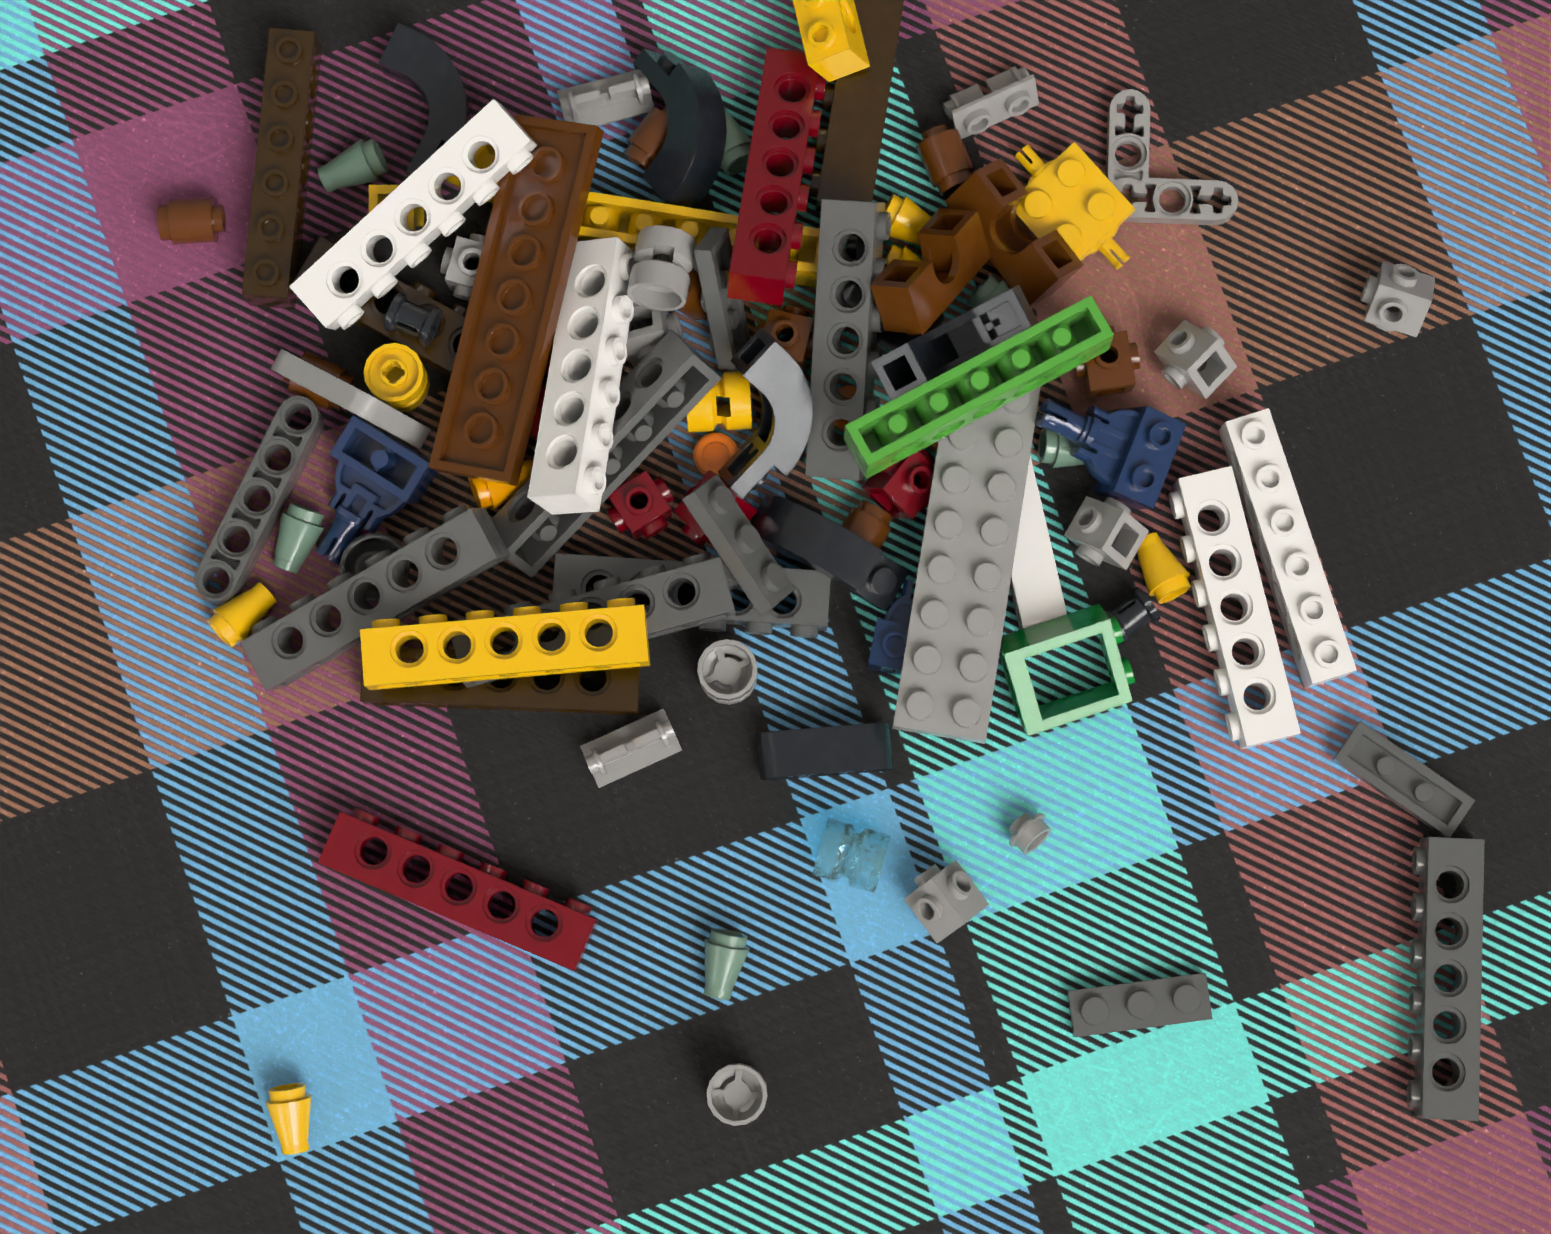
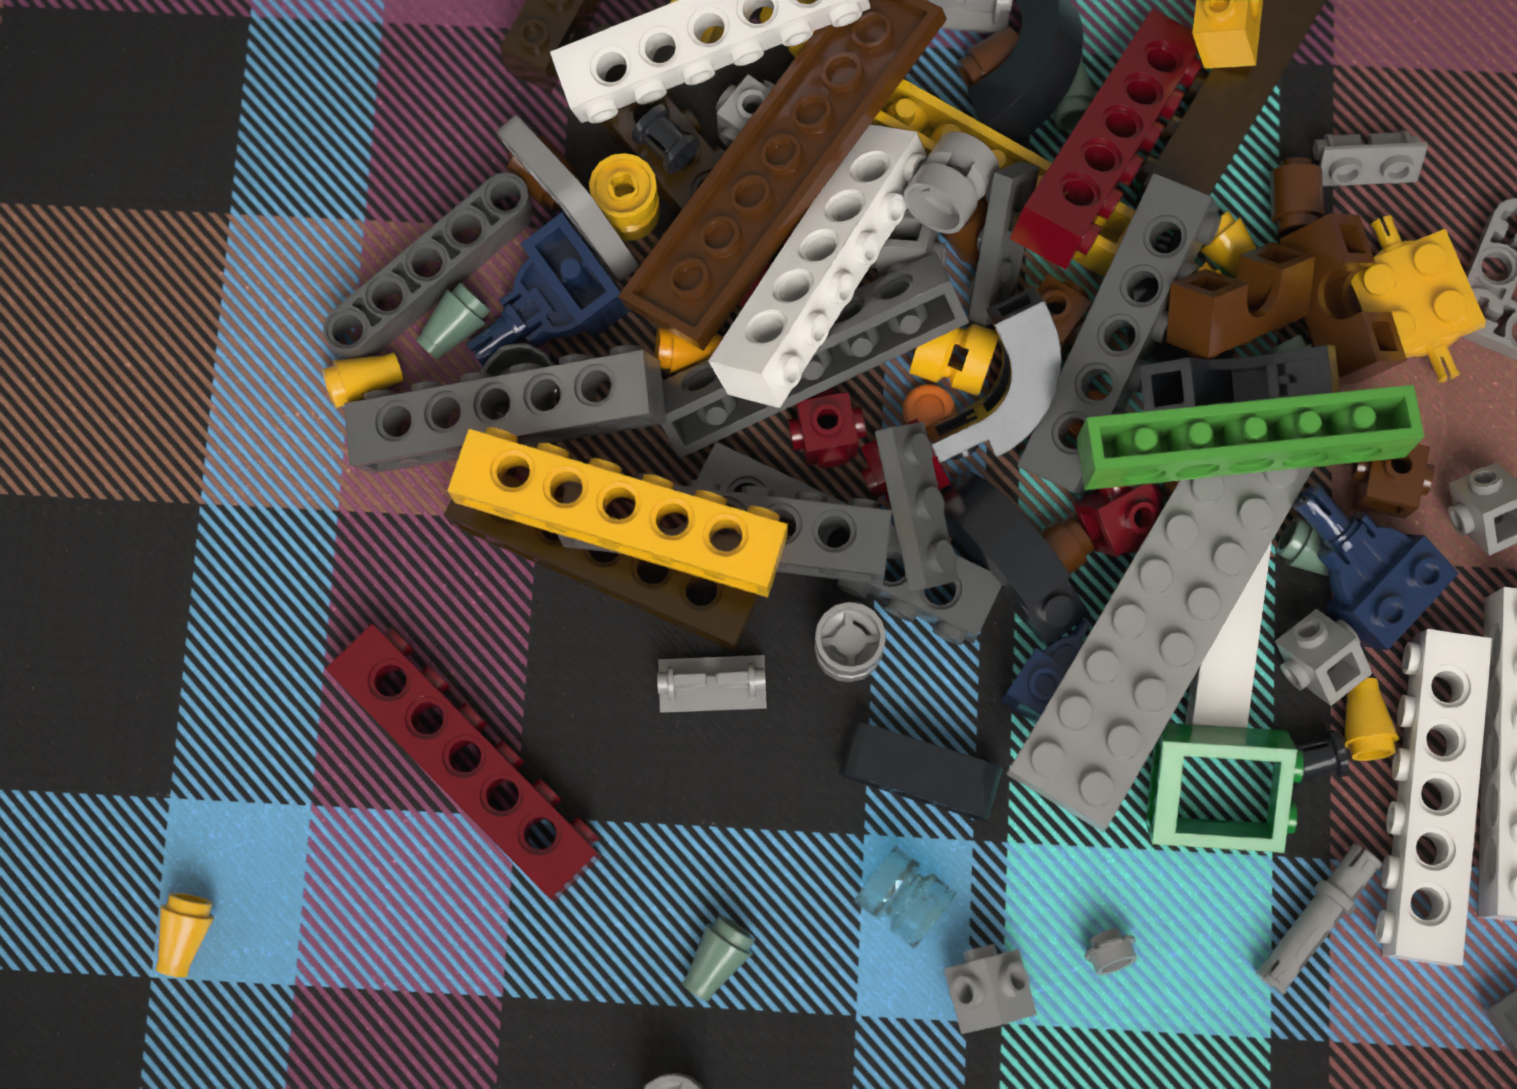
camera: 25 degrees right, 5 degrees down
(1180, 740) = (1314, 924): none -> light grey pin

